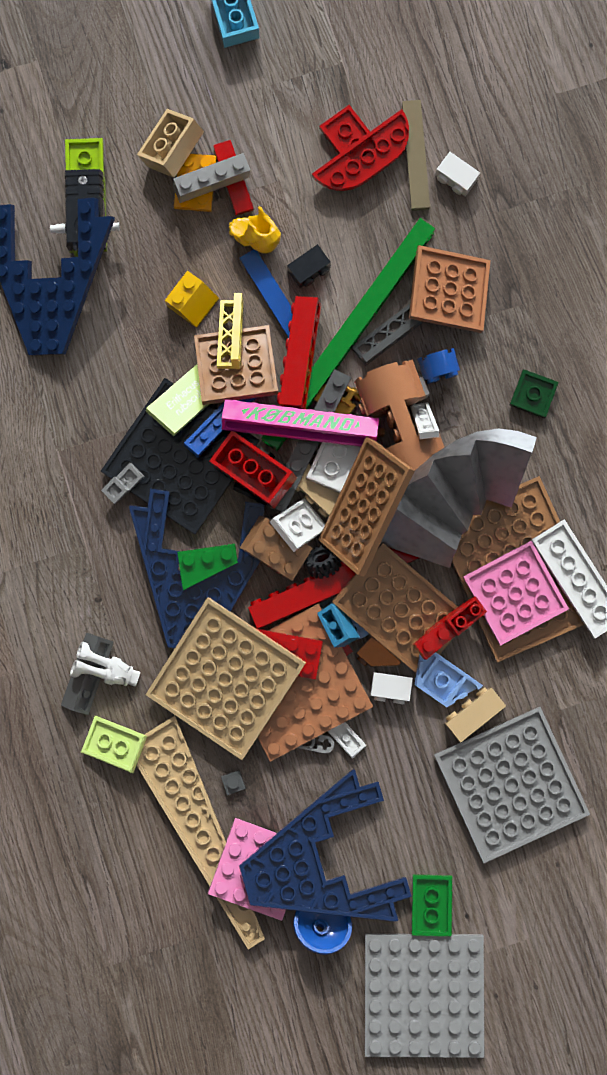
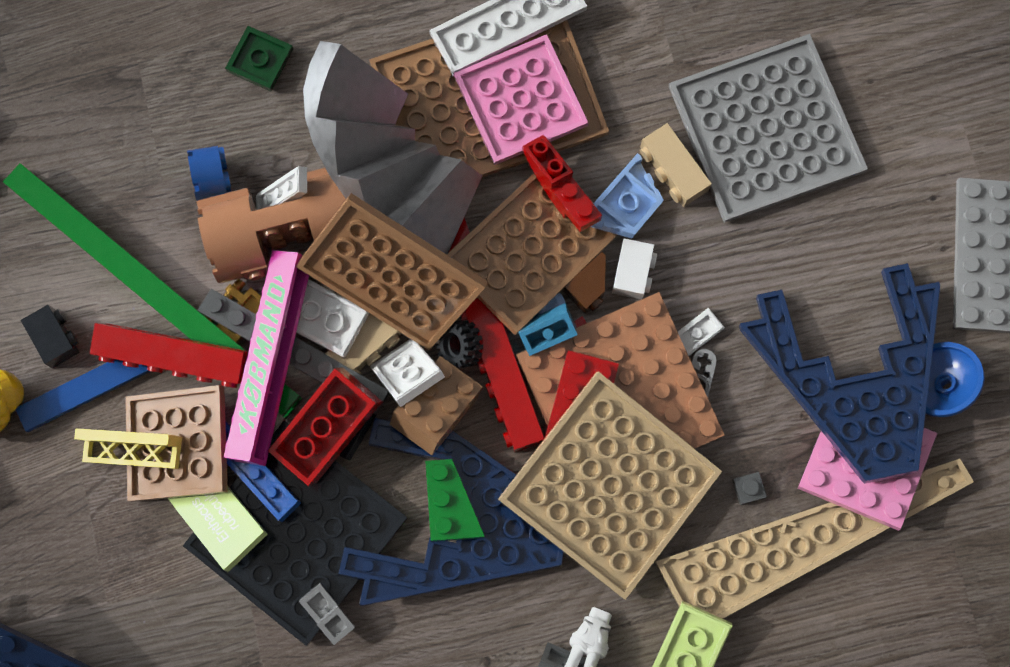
camera: 85 degrees left, 5 degrees down
(191, 299) = (75, 501): yellow slope -> none
(379, 348) = (161, 229): dark grey fence -> none
(431, 905) = (919, 239): green plate -> none
(449, 289) = (106, 151): nougat plate -> none

